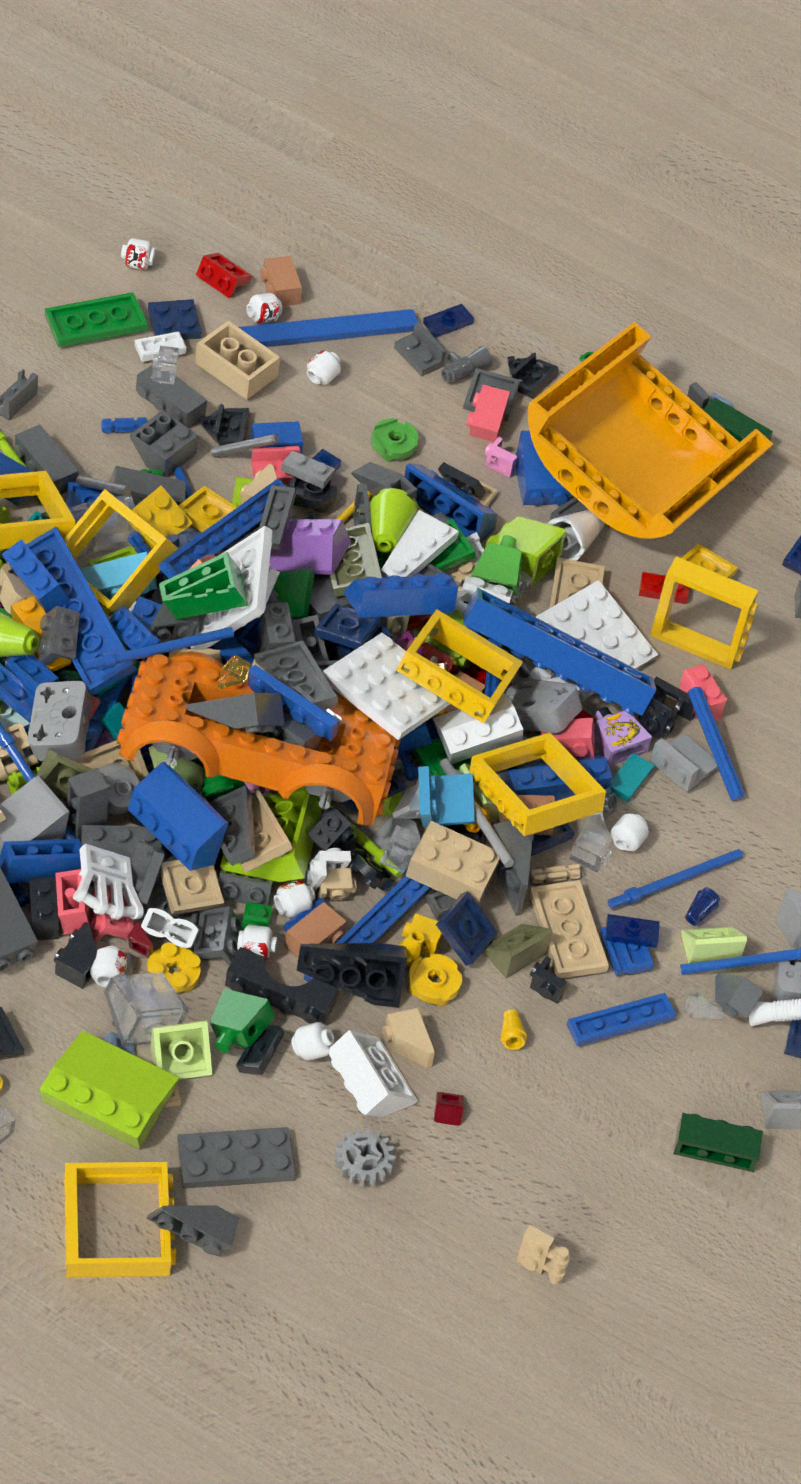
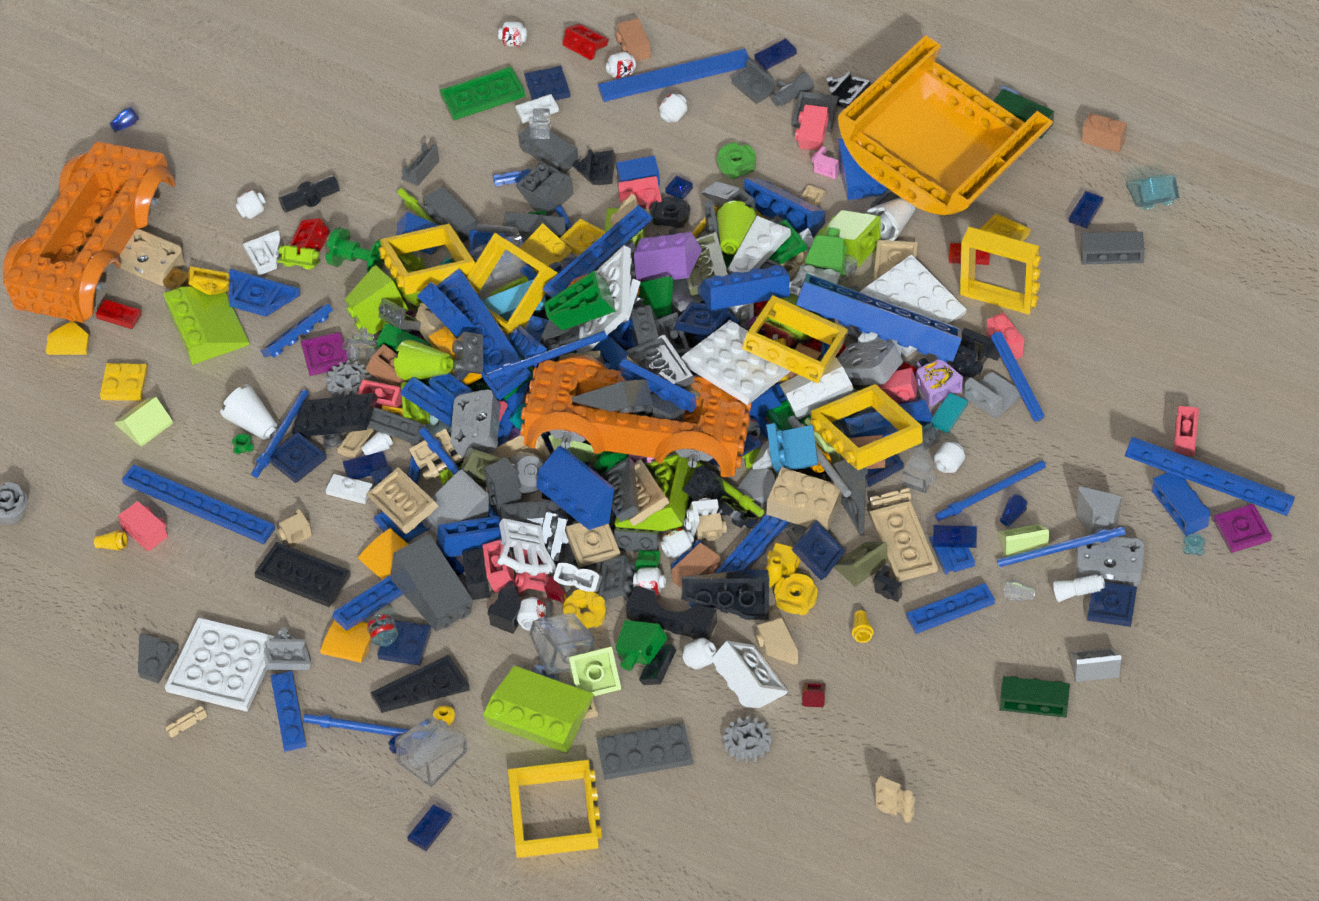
camera: 10 degrees right, 0 degrees up
(202, 1225) = (618, 805): dark grey slope -> none
(233, 672) = (608, 367): clear yellow slope -> none
(237, 360) = (600, 111): tan brick -> none
(244, 445) = (611, 181): flat silver bar -> none
(278, 512) = (638, 235): dark grey plate -> none
(307, 469) = (664, 194): light grey plate -> none
(400, 848) = (758, 492): clear slope -> none
(462, 480) = (796, 188): black plate -> none
(698, 395) = (989, 89): dark grey tile -> none
(736, 995) = (1042, 578): dark grey slope -> none

